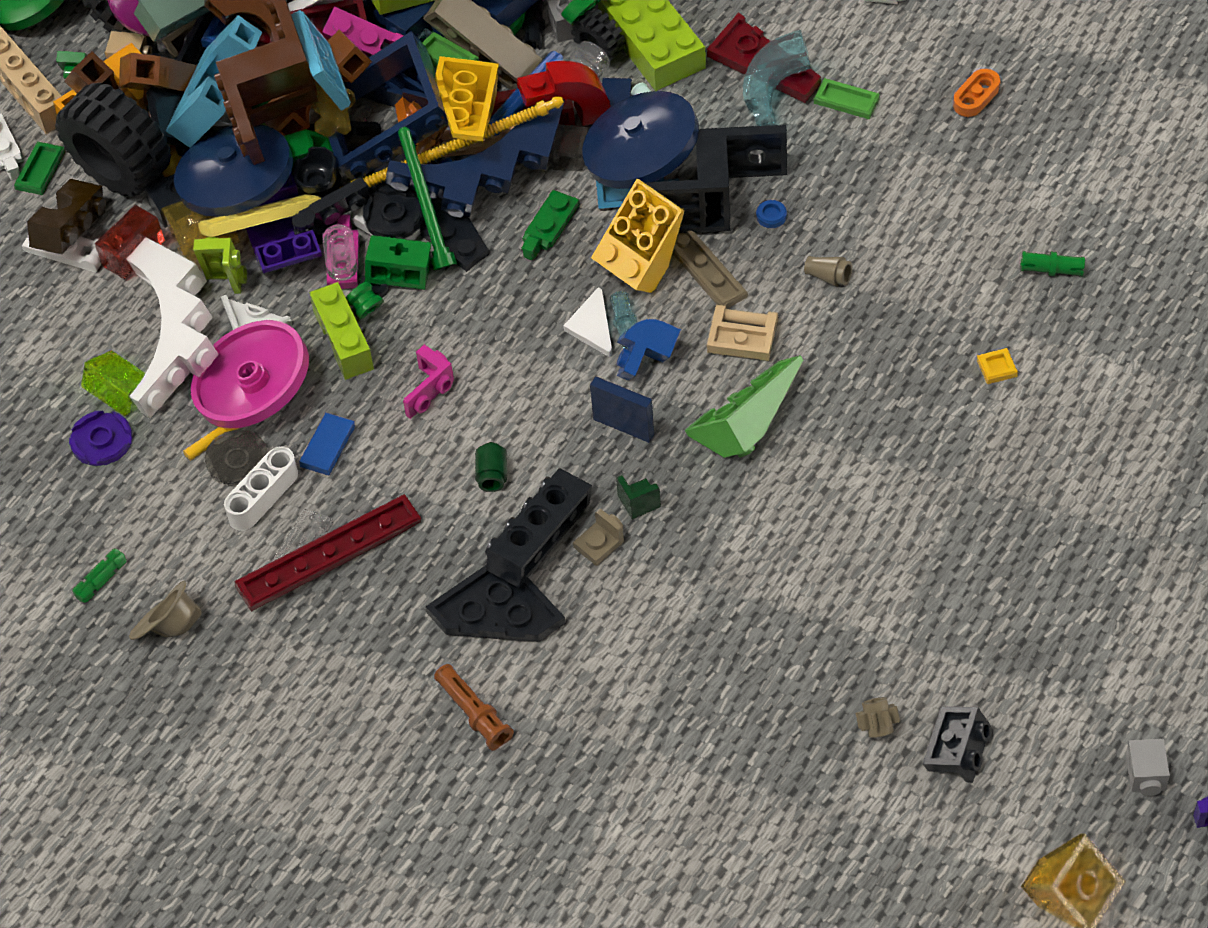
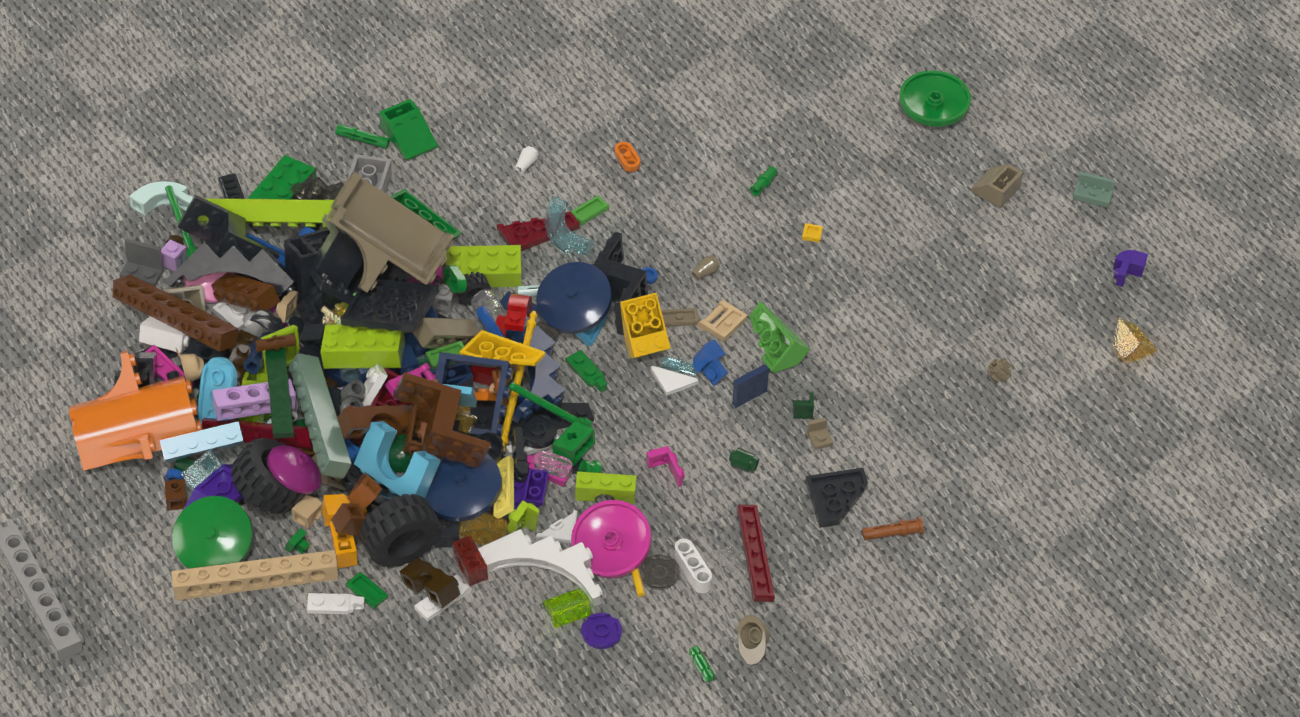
camera: 70 degrees left, 5 degrees down
(327, 444) = (676, 526): blue tile -> none
(537, 527) = (802, 453): black brick -> none
(958, 742) = (1028, 348): black bracket -> none
(1147, 766) = (1085, 285): light grey brick -> none

